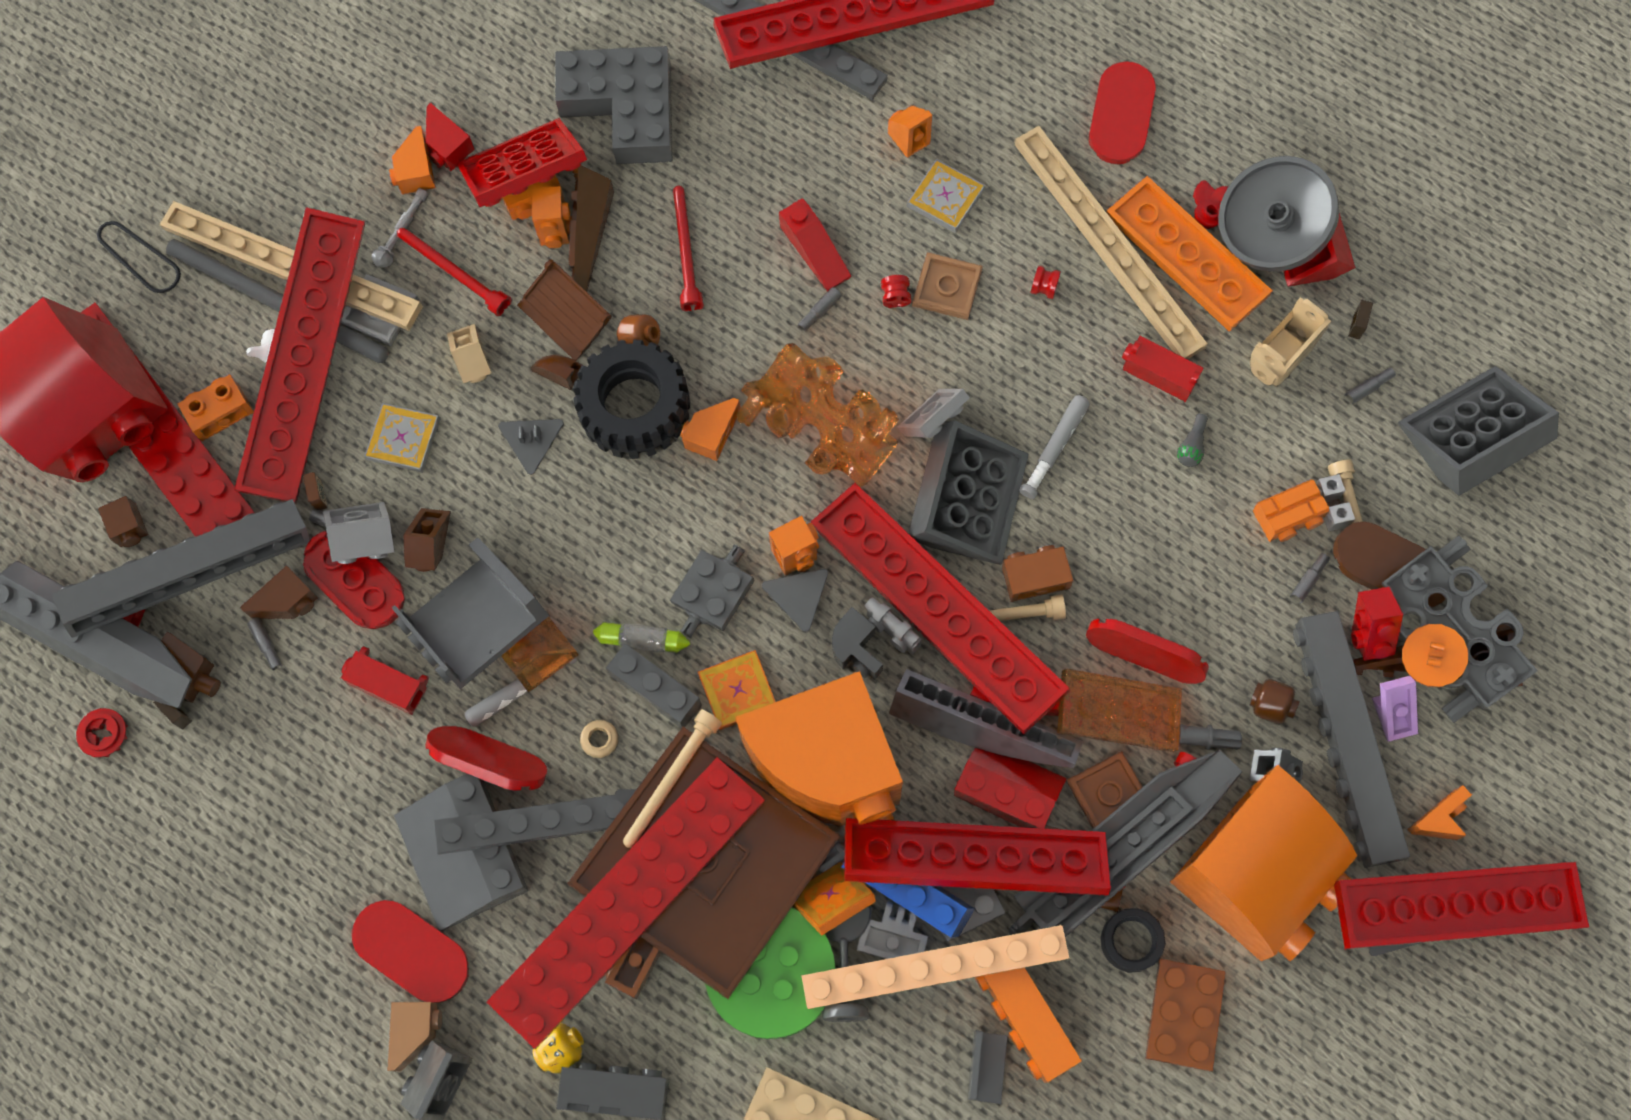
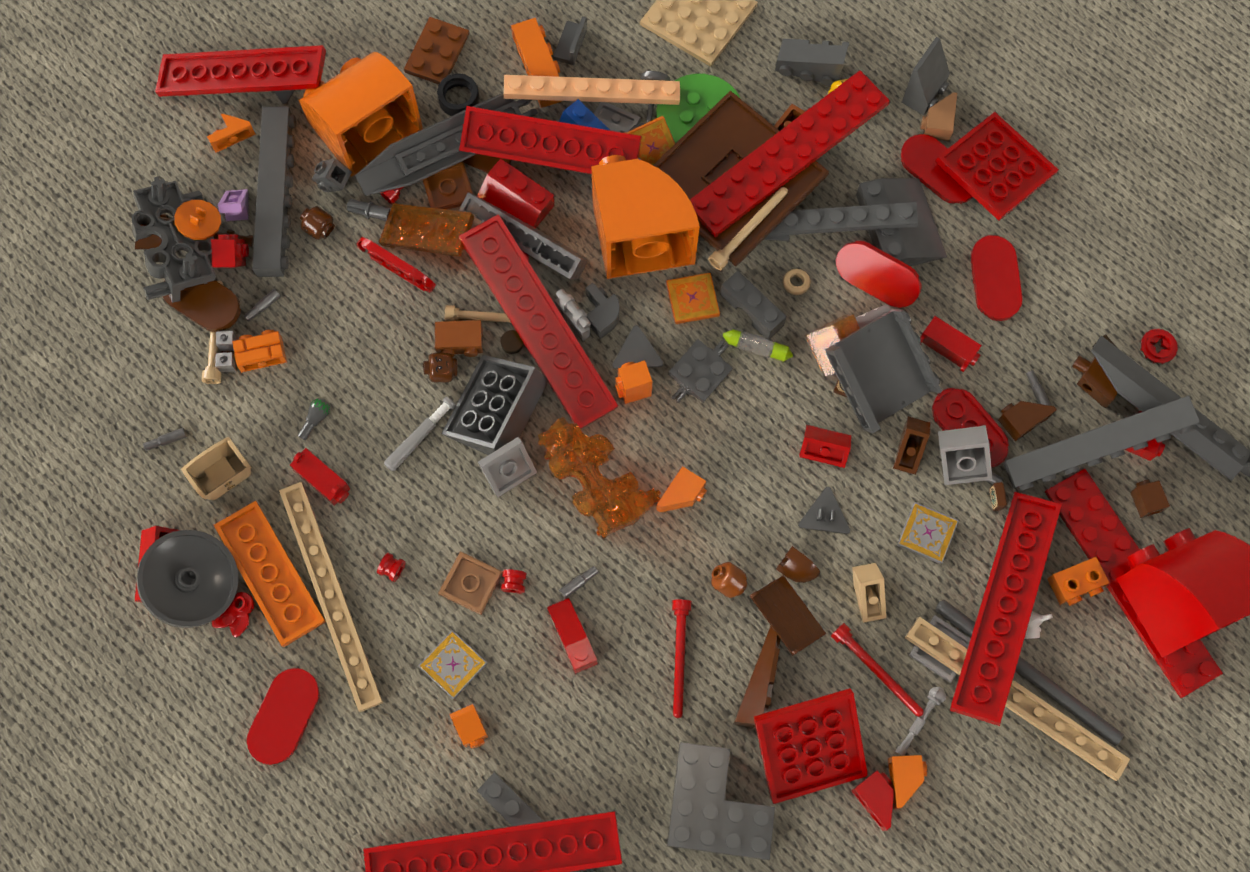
camera: 175 degrees left, 0 degrees up
(146, 245) = (1157, 732): black piece -> none
(323, 795) = (996, 278): none -> red tile
(325, 964) = (996, 166): none -> red plate
(537, 522) = (825, 446): none -> red panel
(551, 216) = (789, 690): orange brick -> none
(623, 364) = (747, 492): black tyre -> none
(971, 582) = (511, 342): none -> dark brown tile
(1050, 529) = (440, 367): none -> reddish brown head
(1360, 319) = (153, 488): dark brown tile -> none
(1480, 429) = (97, 389): dark grey slope -> none

